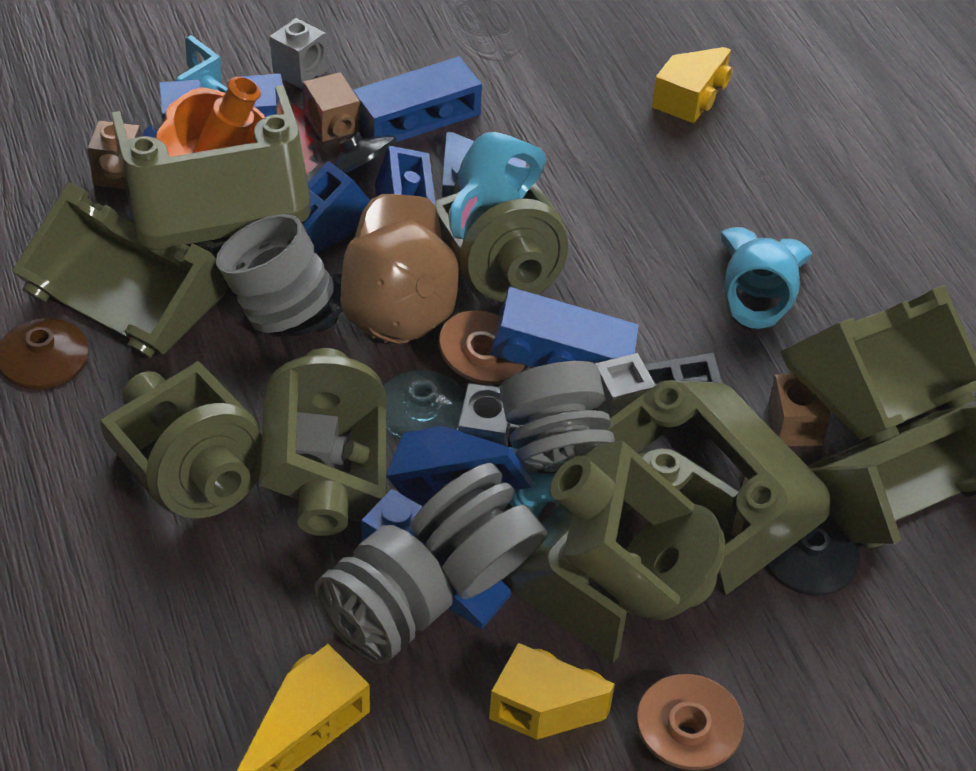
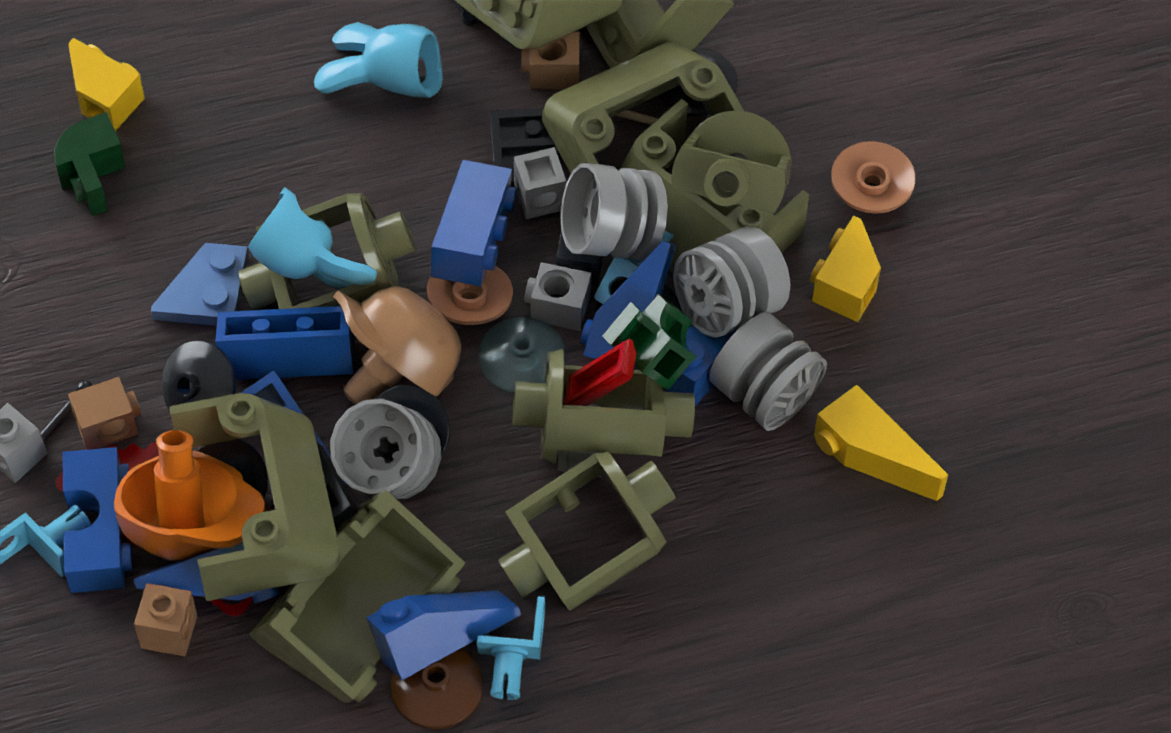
camera: 85 degrees left, 10 degrees up
(63, 397) = (510, 655): none -> medium azure bracket
(88, 328) = (431, 626): none -> blue slope
(348, 420) = (601, 375): none -> red tile
(393, 460) = (657, 338): none -> dark green brick
(419, 100) = (101, 330): brick -> none
(605, 75) = (84, 154): none -> dark green brick

